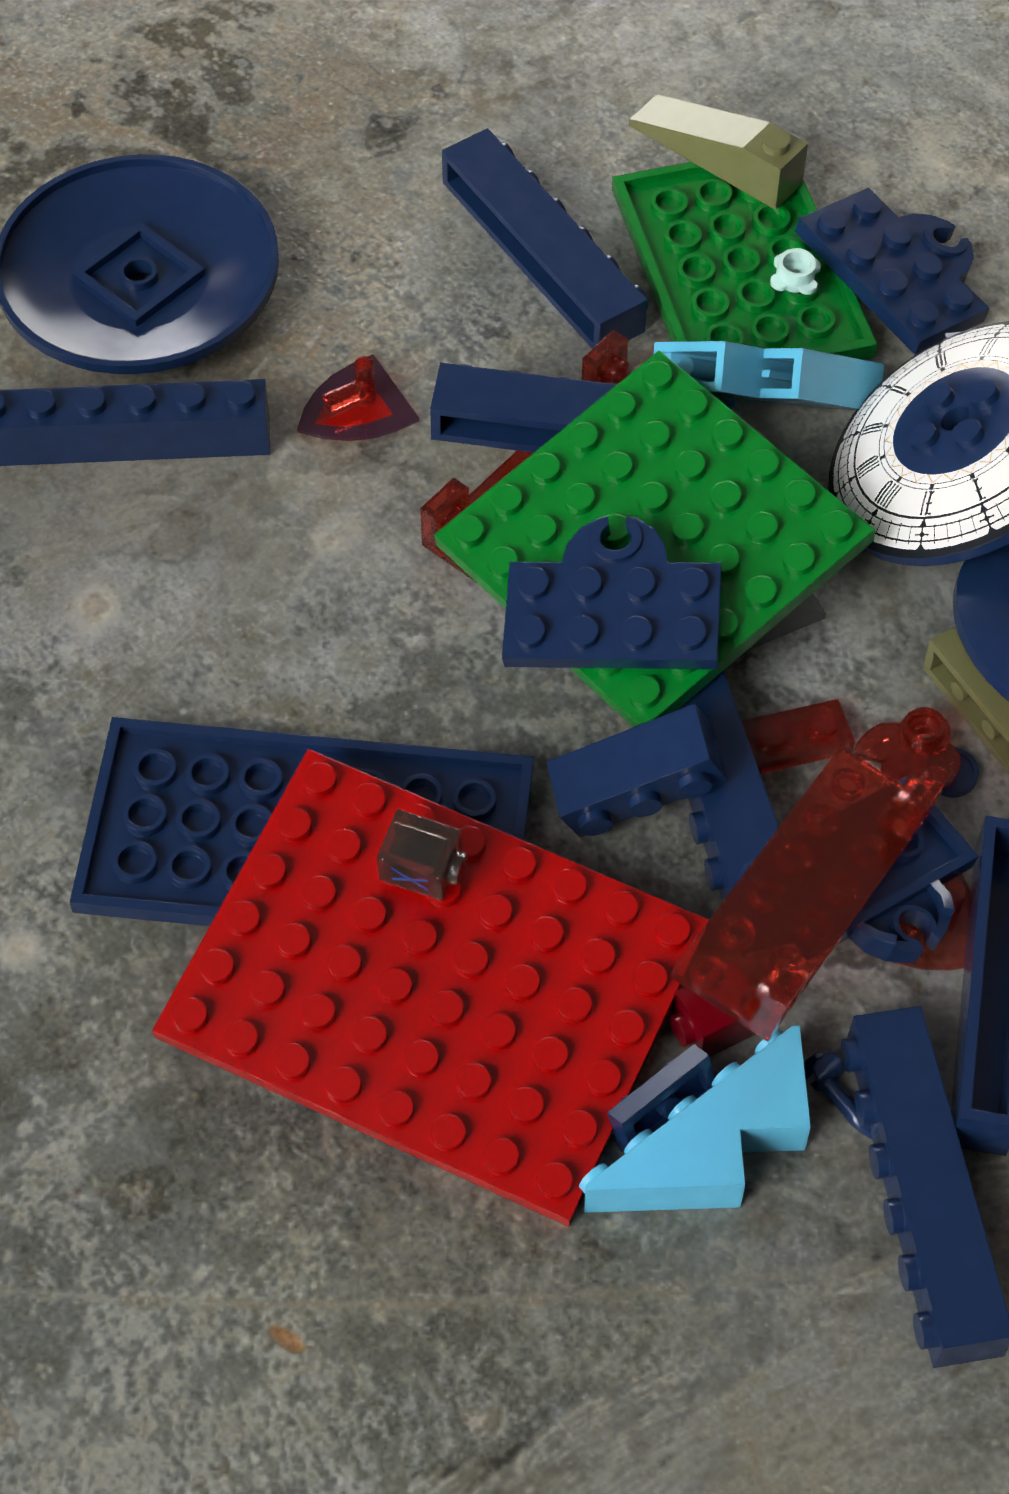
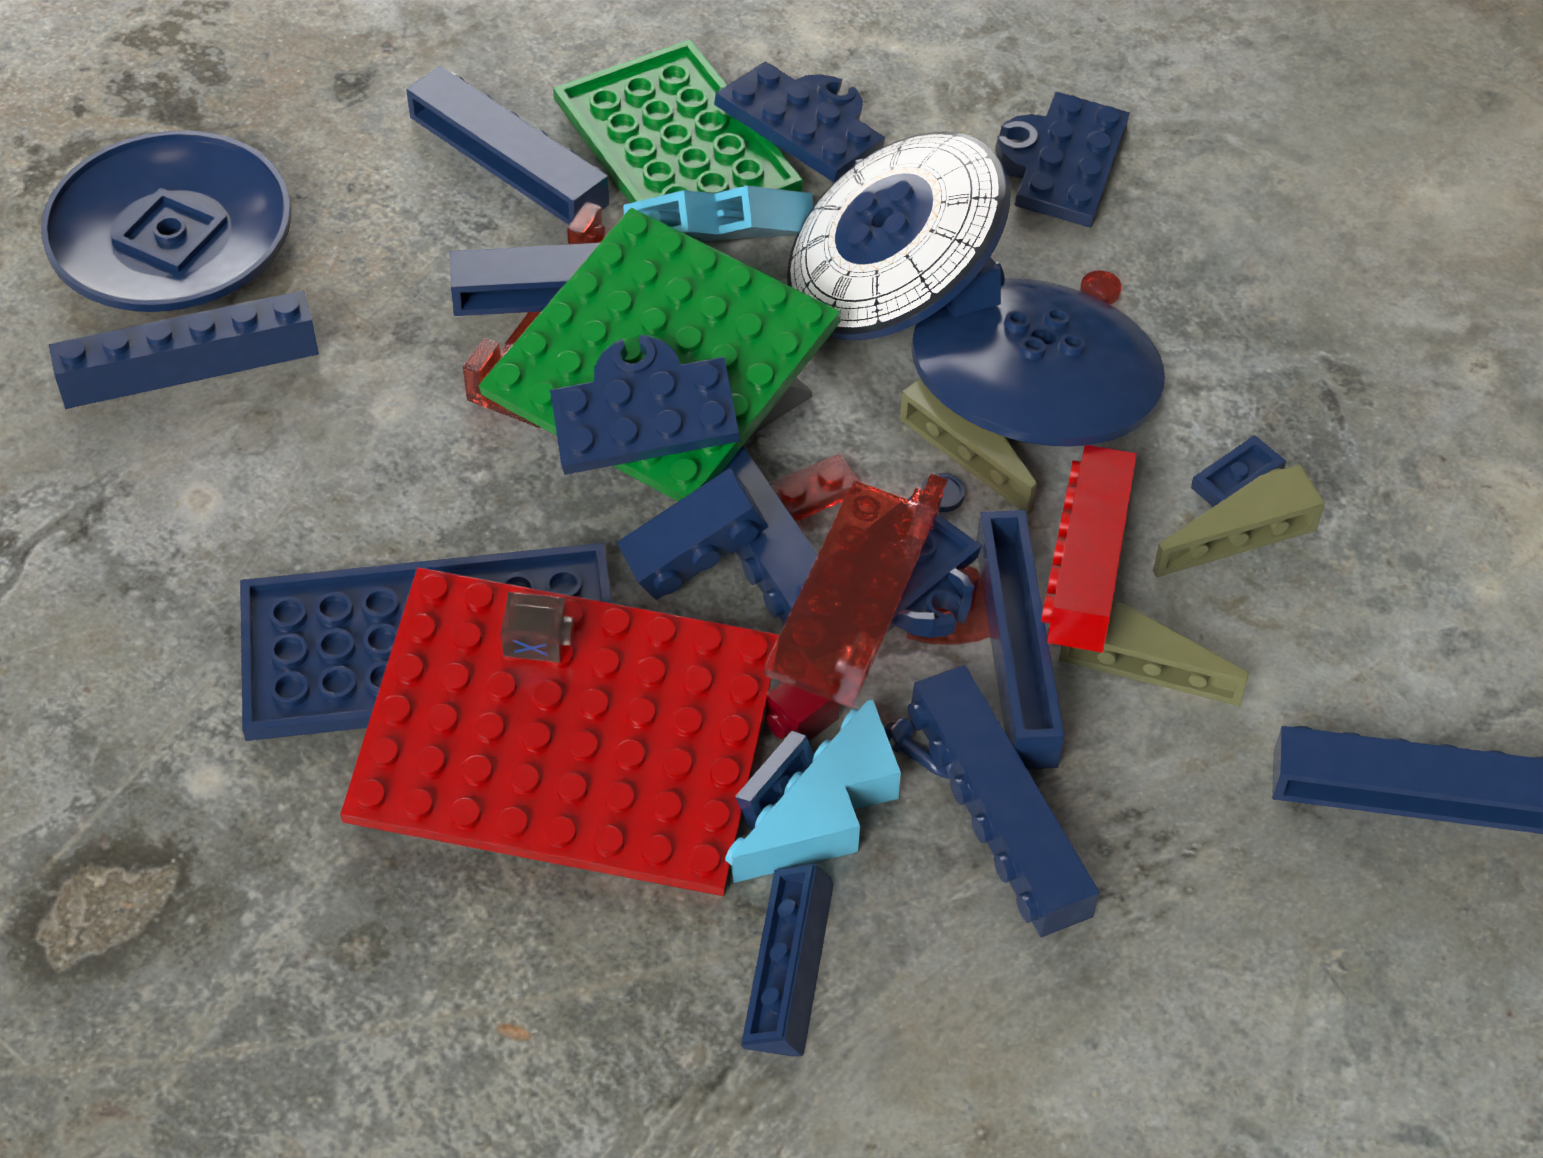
camera: 15 degrees left, 5 degrees down
(356, 405) = (383, 302): clear red shield -> none
(624, 1328) = (788, 961): none -> dark blue slope
(731, 146) = (648, 47): olive slope -> none
(795, 271) = (723, 134): light aqua plate -> none
(905, 752) = (907, 471): clear red plate -> none

